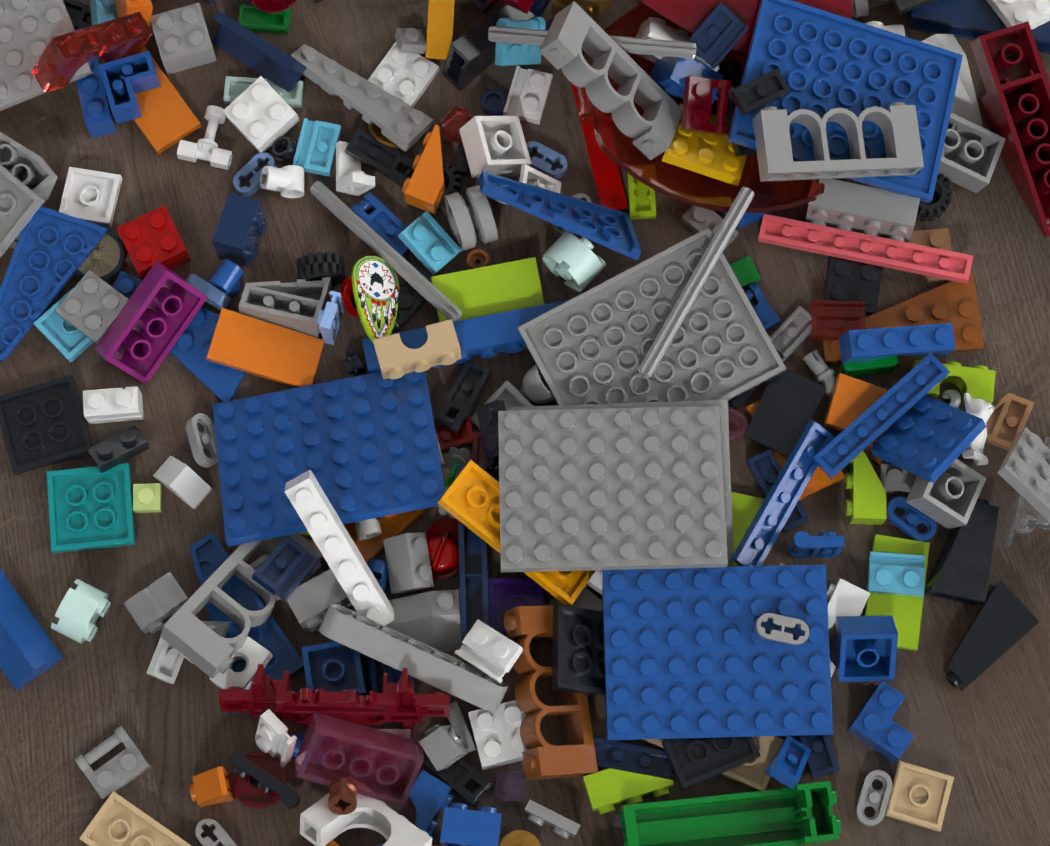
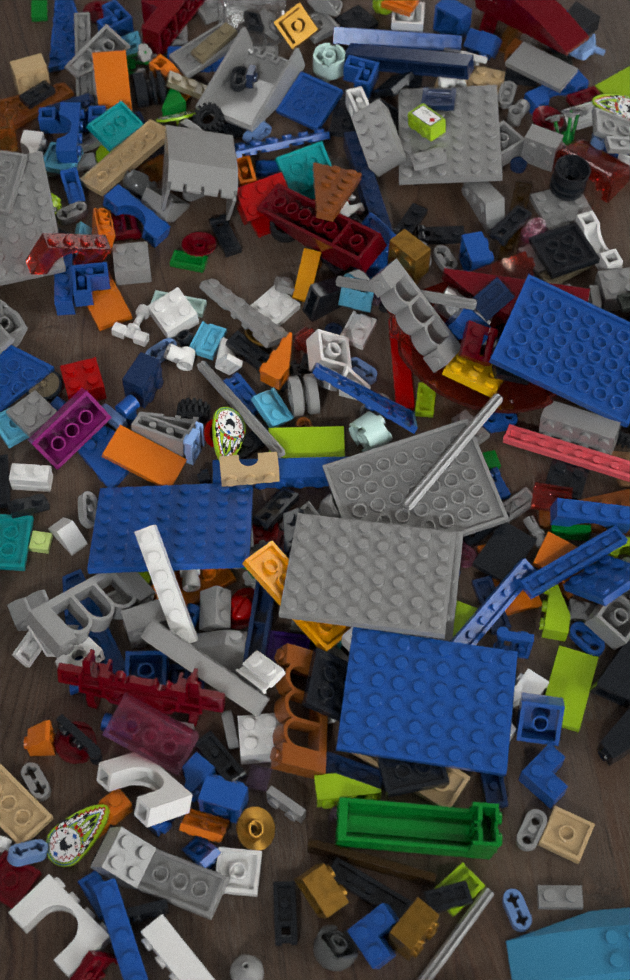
camera: 10 degrees right, 15 degrees down
(91, 195) = (49, 346): white plate -> none
(257, 53) = (179, 276): dark blue panel -> none
(273, 738) = (92, 709): white plate -> none
(285, 568) = (125, 593): dark blue plate -> none
(342, 796) = (137, 751): copper wheel -> none
(443, 746) = (214, 736): light grey brick -> none
(760, 92) = (515, 332): black plate -> none
(783, 622) = (480, 684): light grey beam -> none
(789, 762) = (469, 790): blue slope -> none
(896, 574) = (570, 673): medium azure plate -> none
(897, 124) = (609, 369): light grey fence -> none

